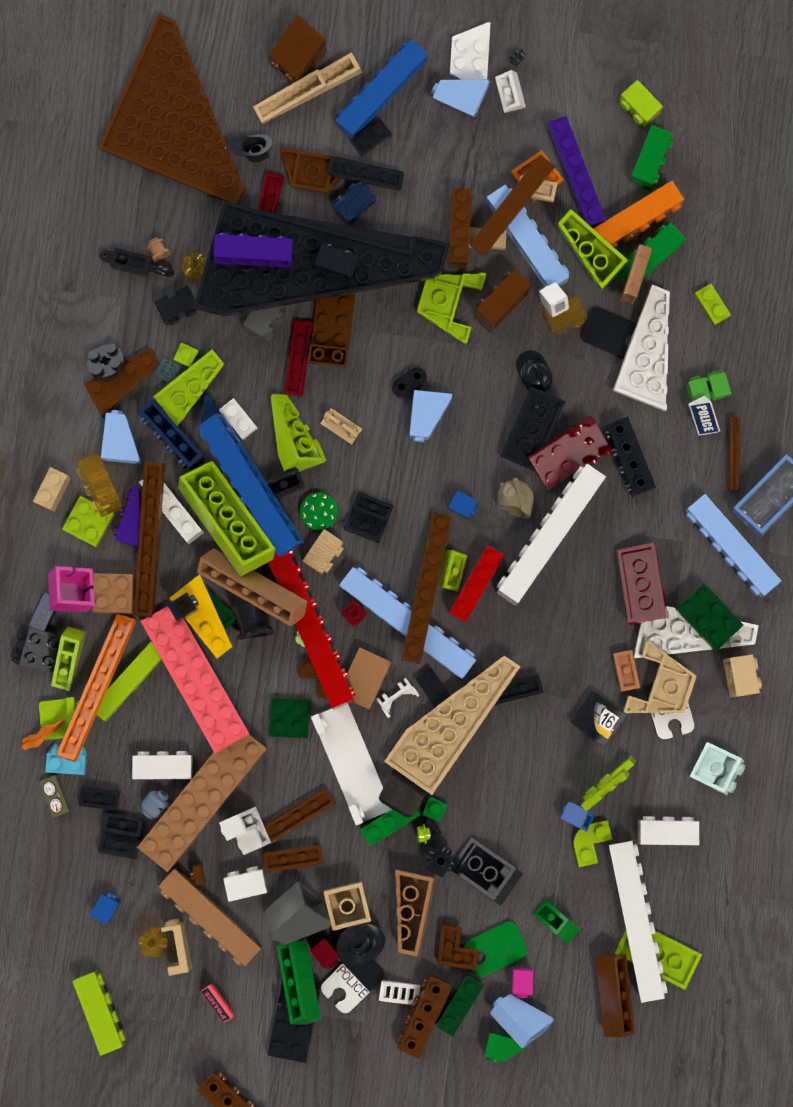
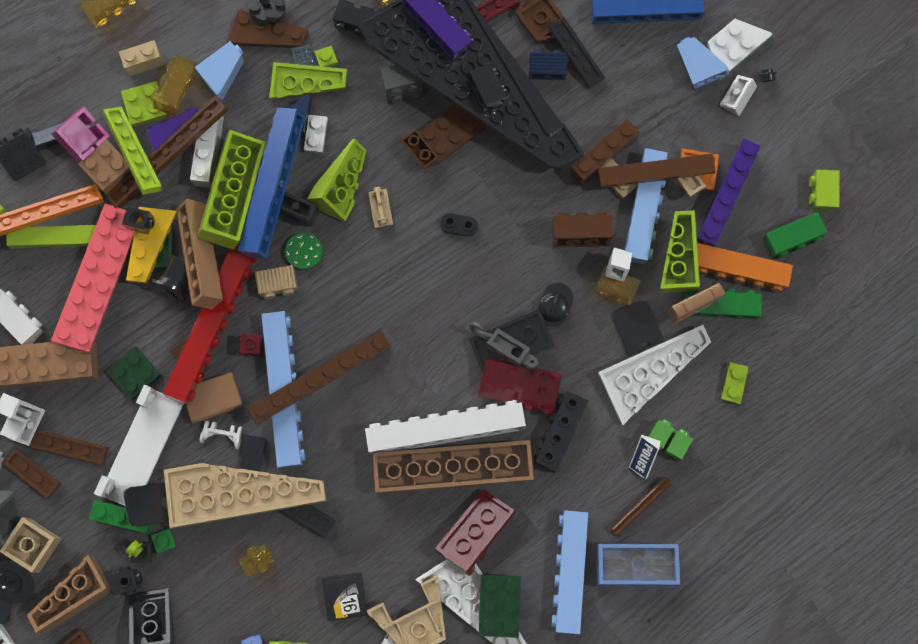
camera: 50 degrees right, 5 degrees down
(68, 658) = (33, 179): lime slope -> none
(121, 562) = (132, 150): none -> lime plate
(167, 430) = (257, 99): dark blue brick -> none
(298, 358) = (392, 138): dark red tile -> none
(368, 517) = (333, 289): black slope -> none
(370, 137) = (606, 33): black plate -> none
(426, 413) = (448, 257): light blue slope -> none
(441, 298) = (541, 189): lime wing -> none
(452, 570) = (352, 385): lime slope -> none
(463, 505) = (407, 346): blue brick -> none
(476, 584) = (357, 411): red brick -> none
(514, 755) = (256, 560): none -> clear yellow brick
(516, 498) = (449, 378): dark tan helmet -> none
(531, 436) = (503, 344): none -> dark grey piece
(582, 556) = (452, 467): none -> medium nougat brick
(626, 670) = (400, 583): nougat plate -> none

